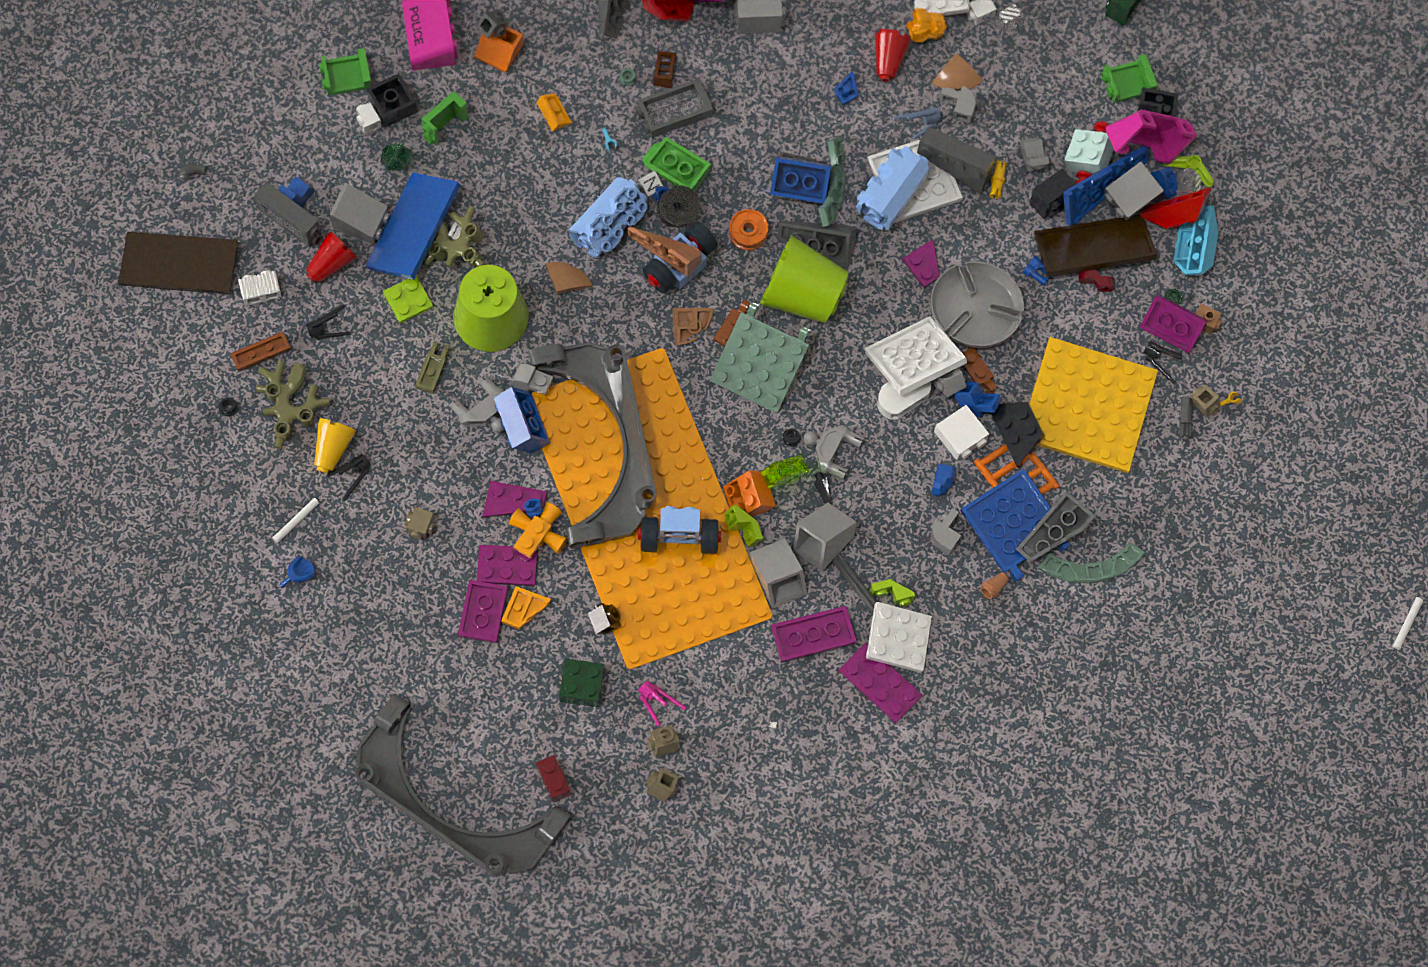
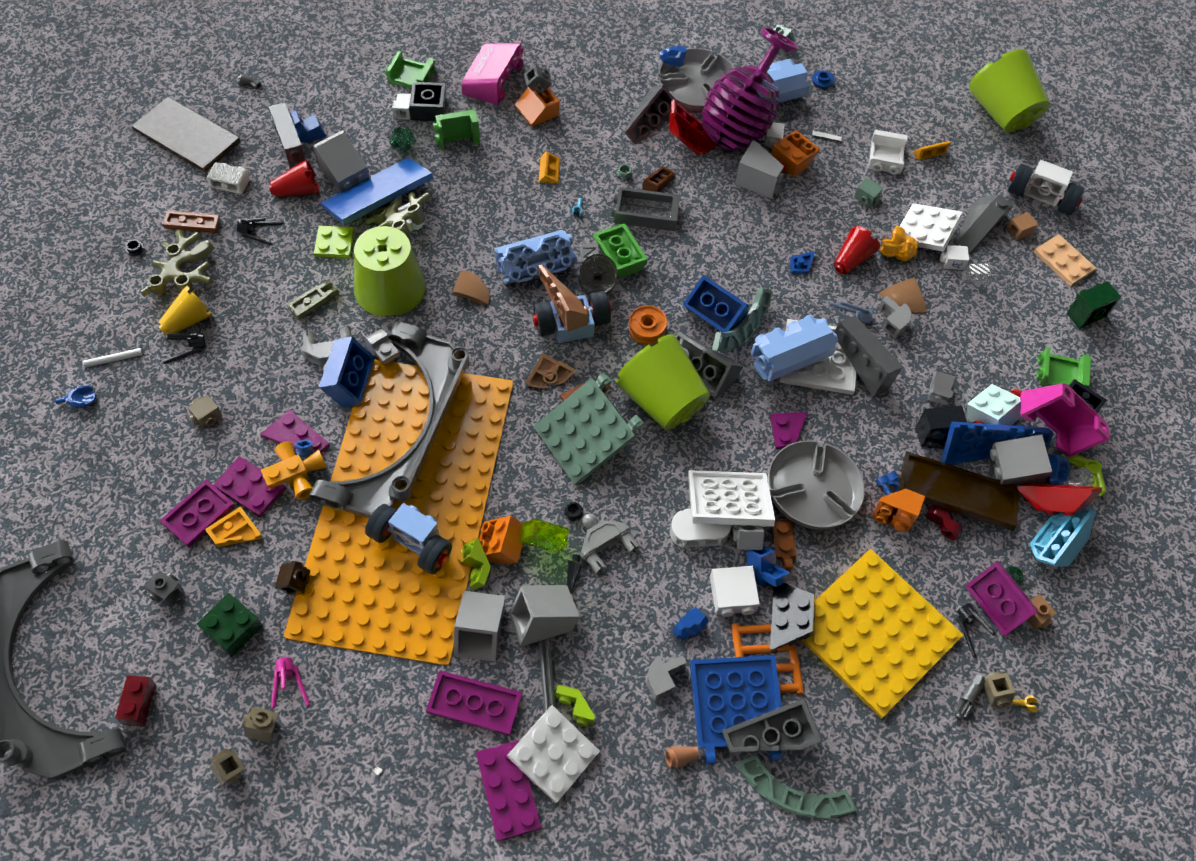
camera: 30 degrees right, 10 degrees down
(507, 691) = (164, 588): none -> dark grey brick
(998, 179) = (896, 393): yellow pin -> none
(1057, 290) = (899, 509): none -> orange slope

